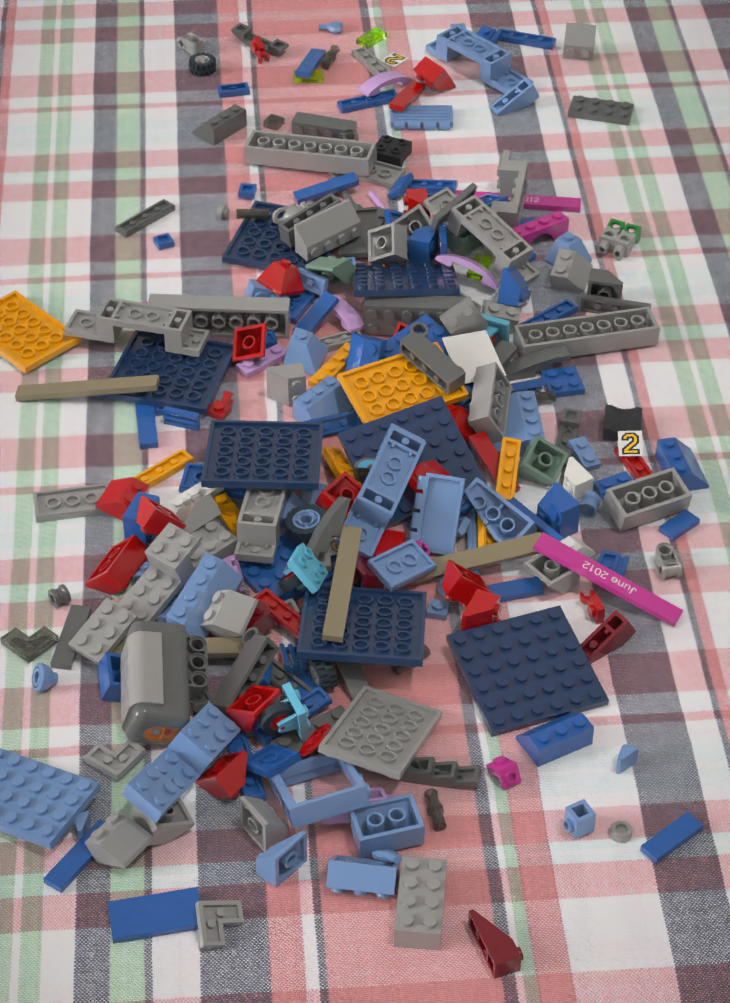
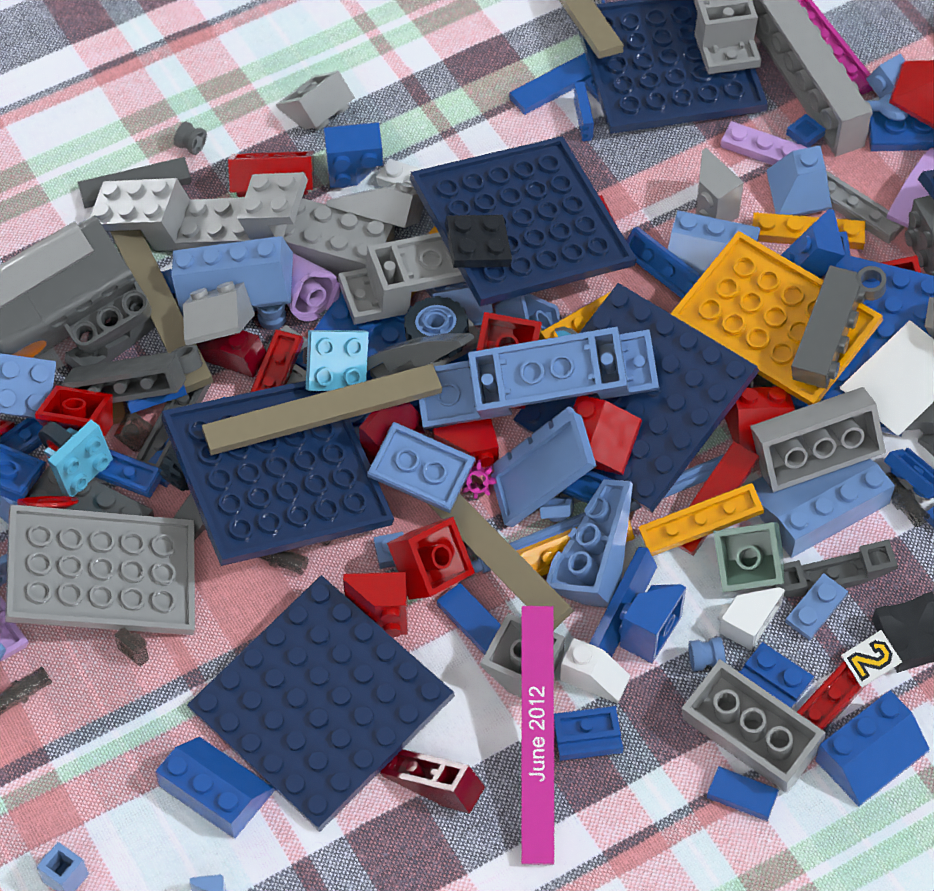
camera: 65 degrees right, 15 degrees up
(29, 647) = (95, 150): clear smoke plate -> none
(43, 677) = (47, 186): medium blue brick -> none
(68, 502) = (371, 78): light grey tile -> none
(76, 527) = (317, 100): none -> light grey slope
(119, 496) = (396, 118): red slope -> none
(155, 517) = (339, 163): red slope -> none
(165, 468) = (468, 133): light orange tile -> none
(221, 409) = (634, 144): red plate -> none
(249, 342) = (767, 114): red slope -> none
(275, 469) = (478, 241): none -> black plate
(318, 312) = (886, 161): blue tile -> none
(437, 743) = (132, 646): none -> clear smoke plate
(442, 774) = (84, 675): dark grey slope -> none
(505, 770) = (121, 745): dark pink bracket -> none
(595, 607) = (491, 742): red plate -> none
(667, 561) = (637, 808): light grey piece -> none

